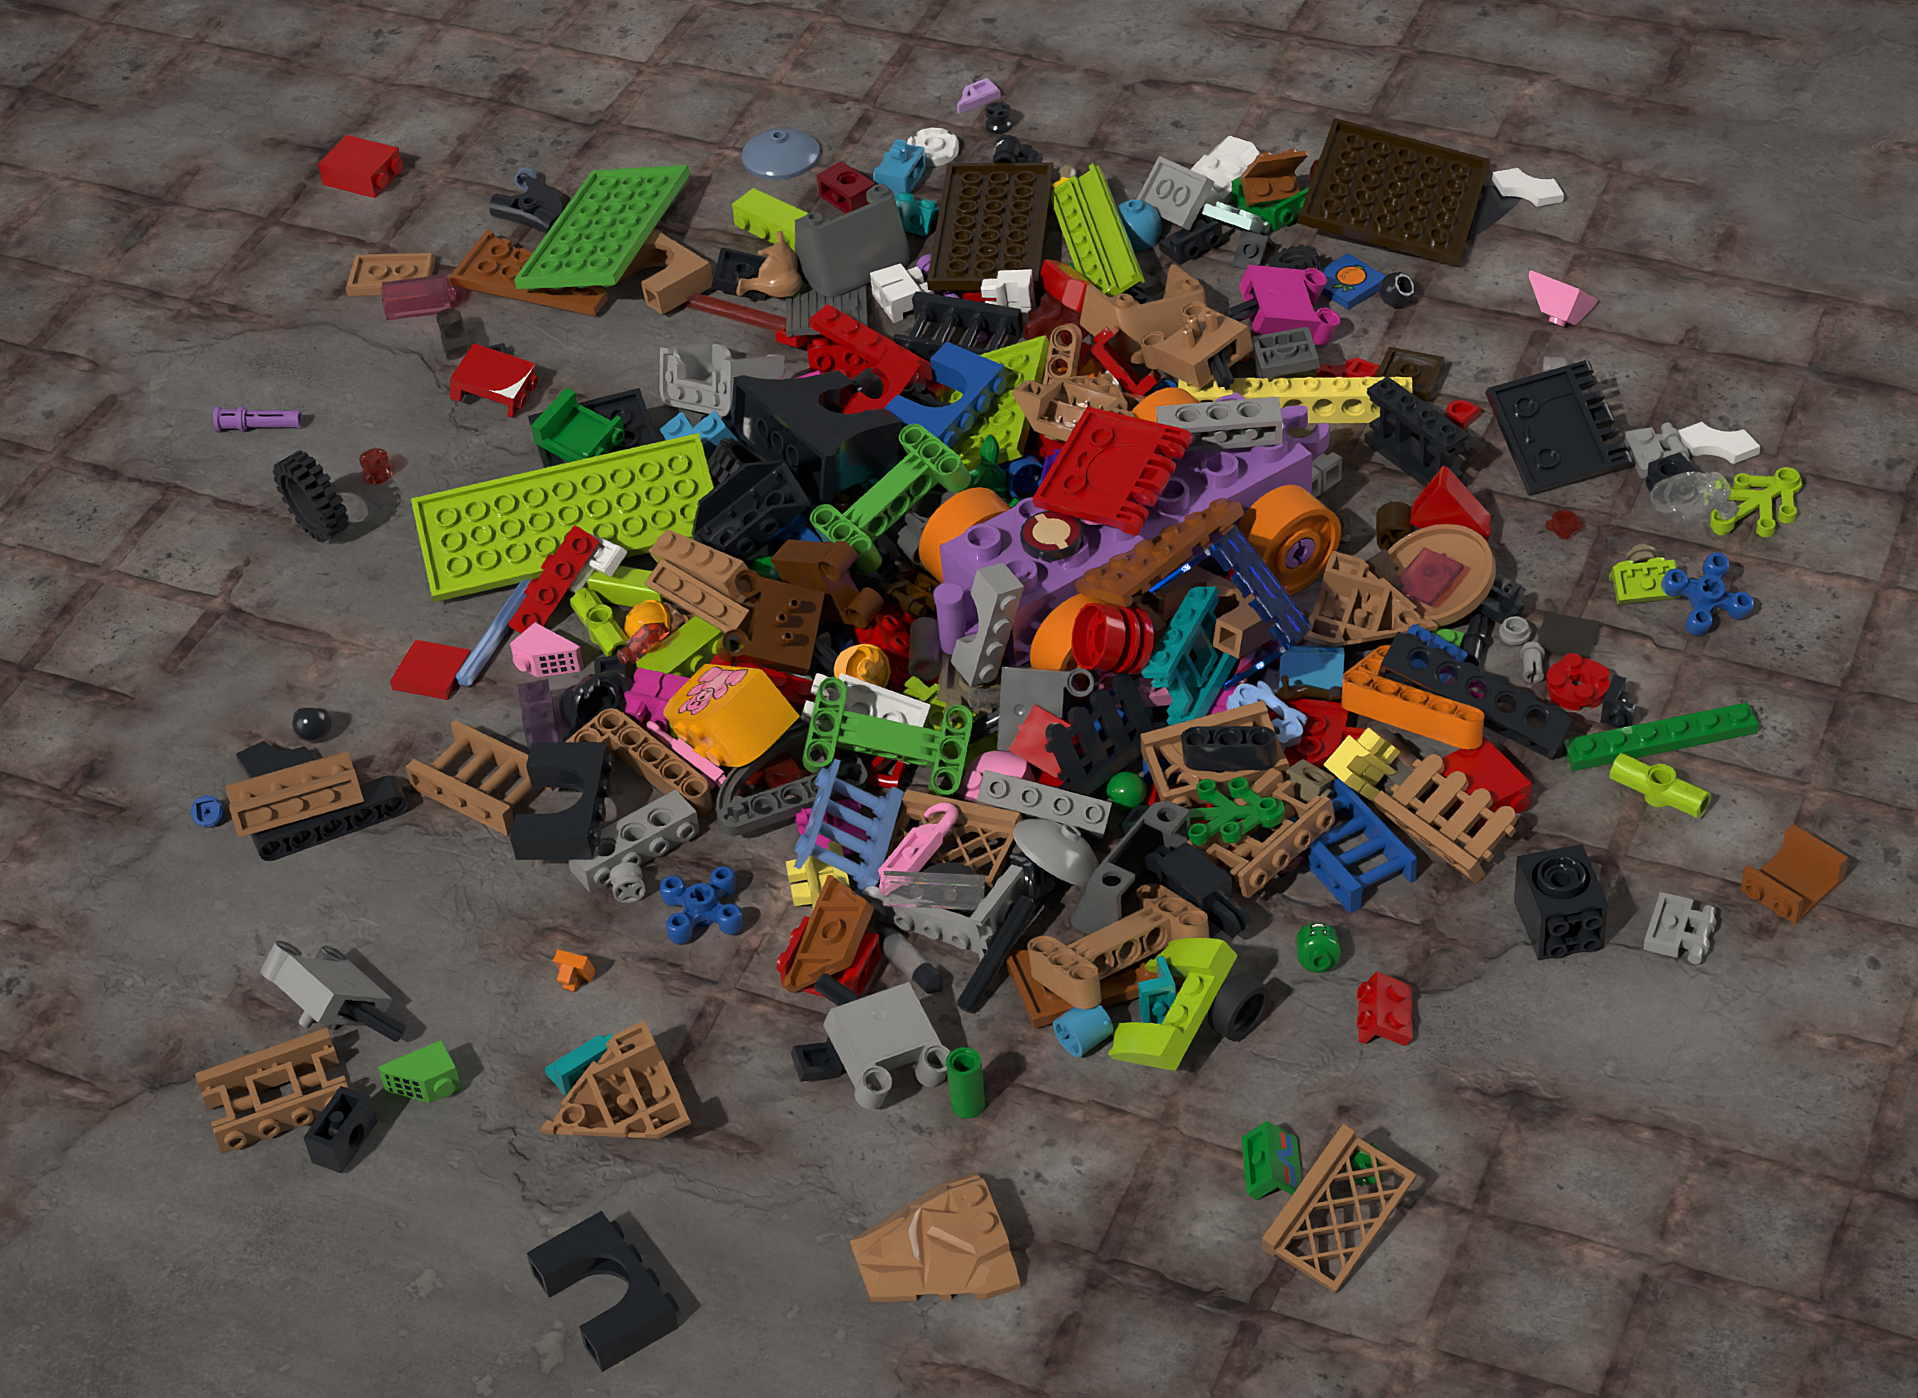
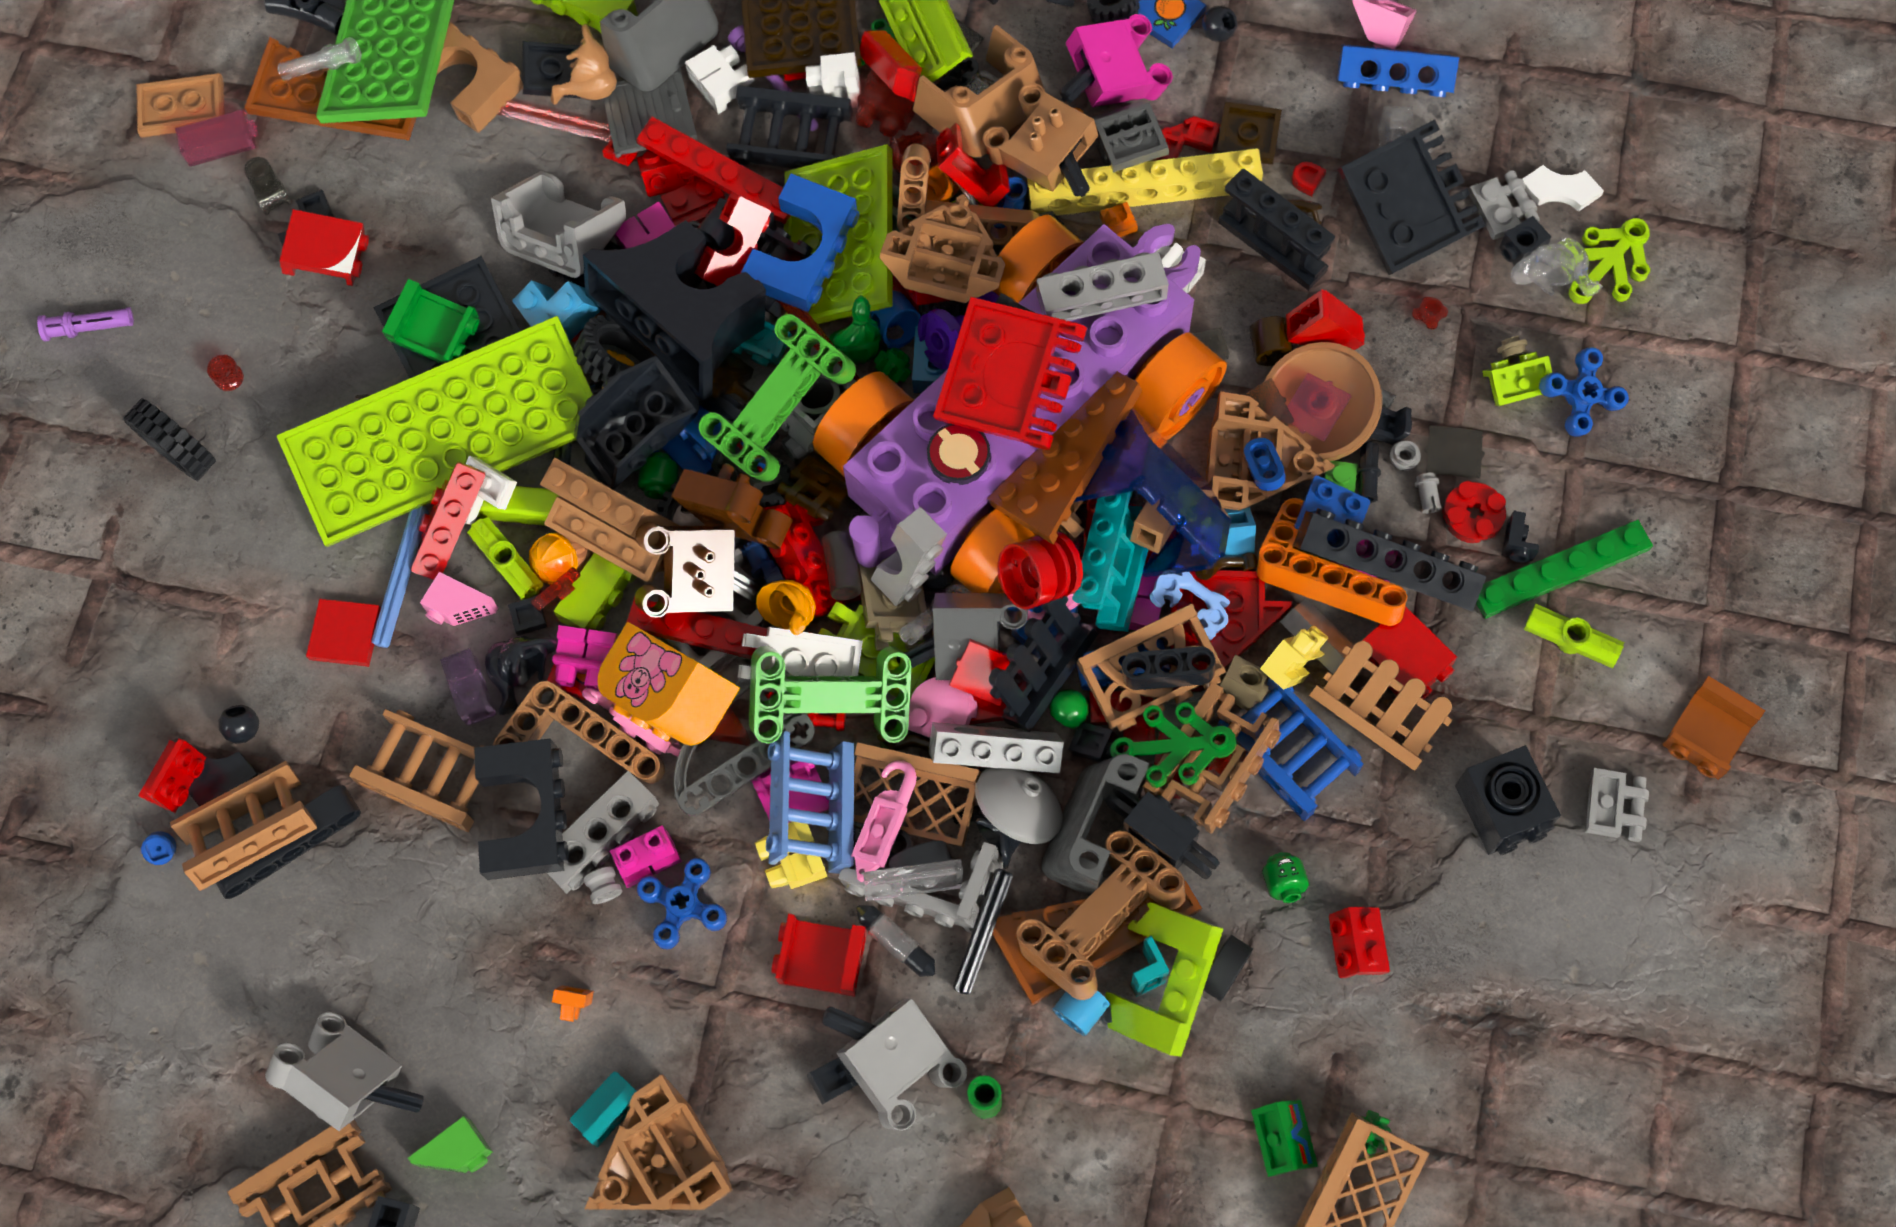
camera: 10 degrees left, 25 degrees up
(239, 747) = (173, 775): none -> red bracket
(538, 237) = (329, 57): none -> clear pin
(683, 850) = (638, 854): none -> dark pink hips
(829, 936) = (820, 934): dark orange wing -> none
(1363, 609) = (1264, 464): none -> blue plate
(1525, 319) = (1443, 67): none -> blue brick

